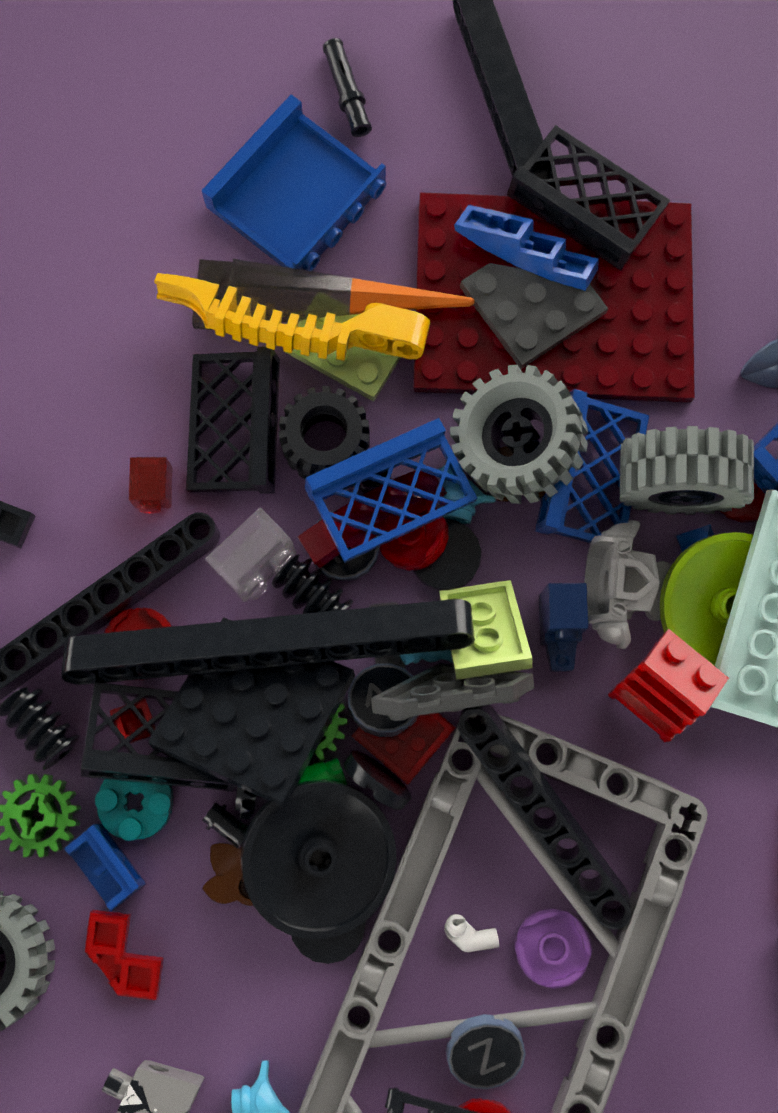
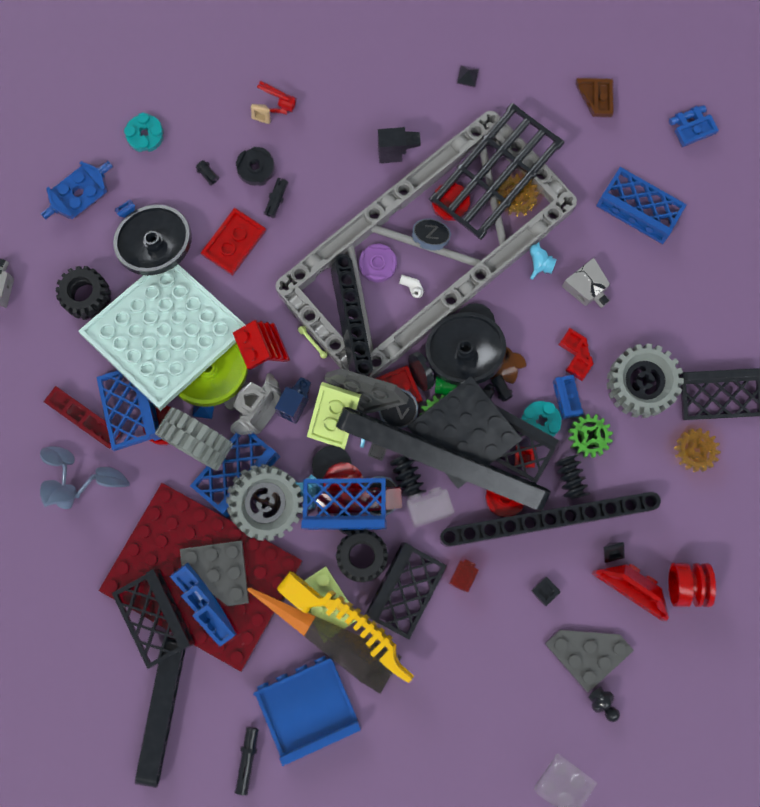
camera: 150 degrees left, 0 degrees up
(613, 755) = (302, 330): none -> yellowish green hinge

